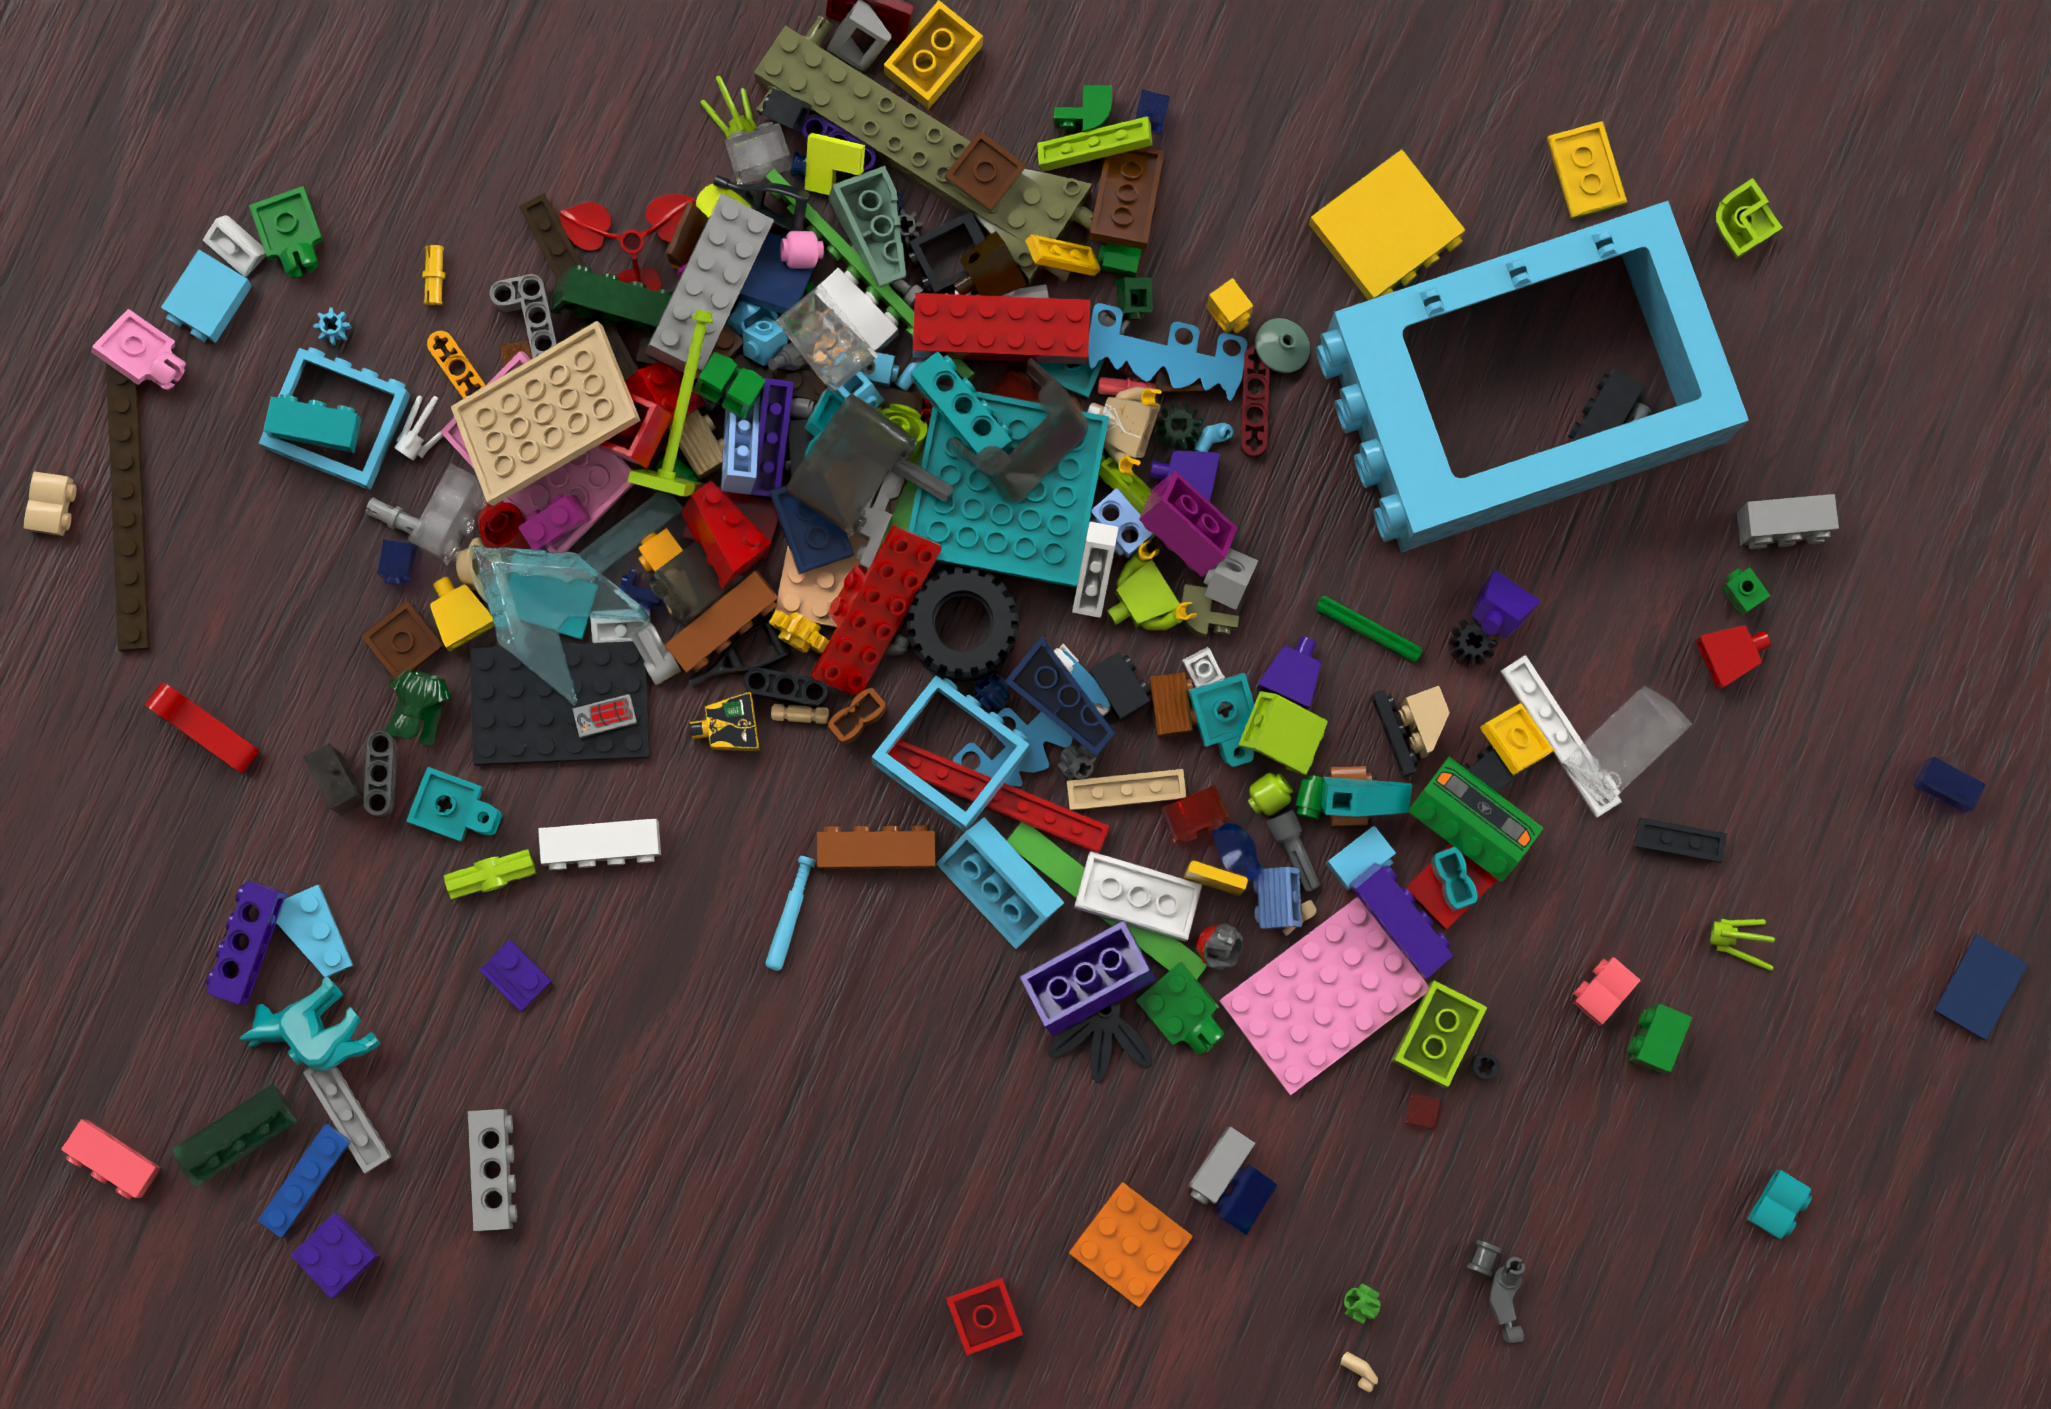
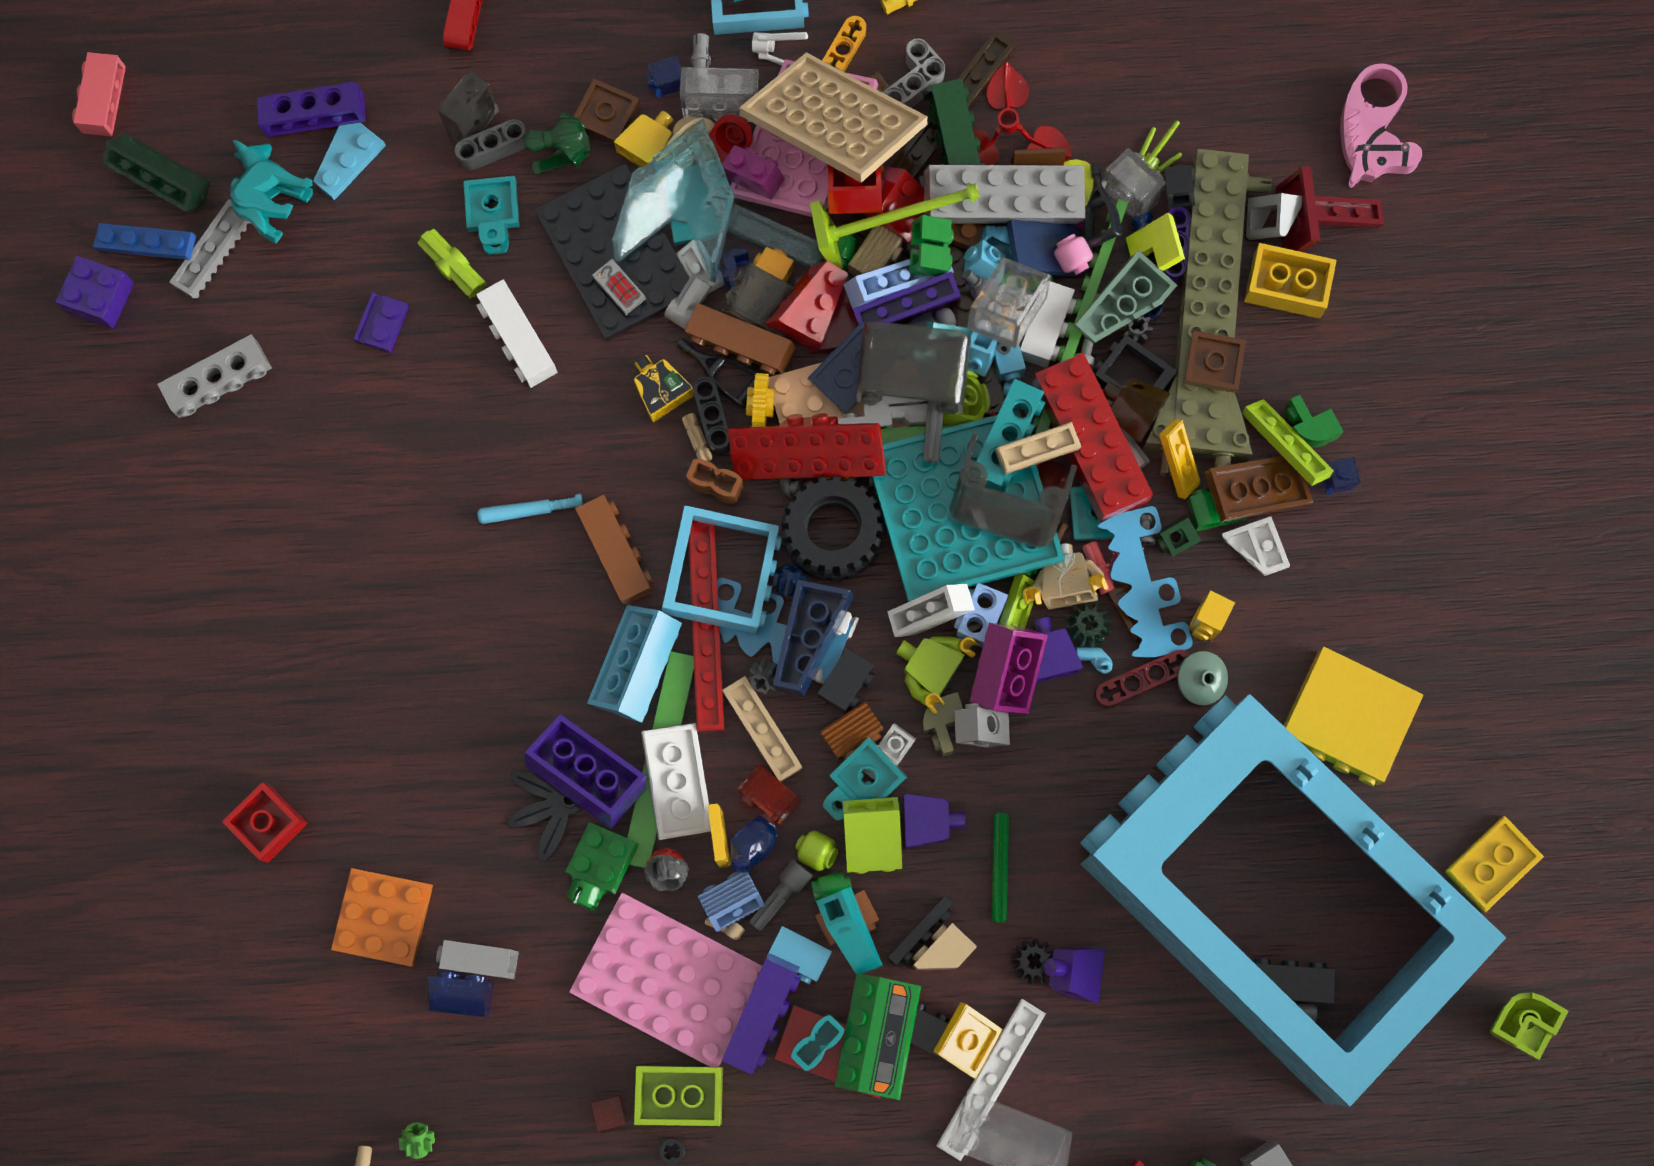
camera: 70 degrees right, 5 degrees down
(993, 385) = (1038, 448): none -> tan tile
(1181, 224) = (1259, 546): none -> white wing

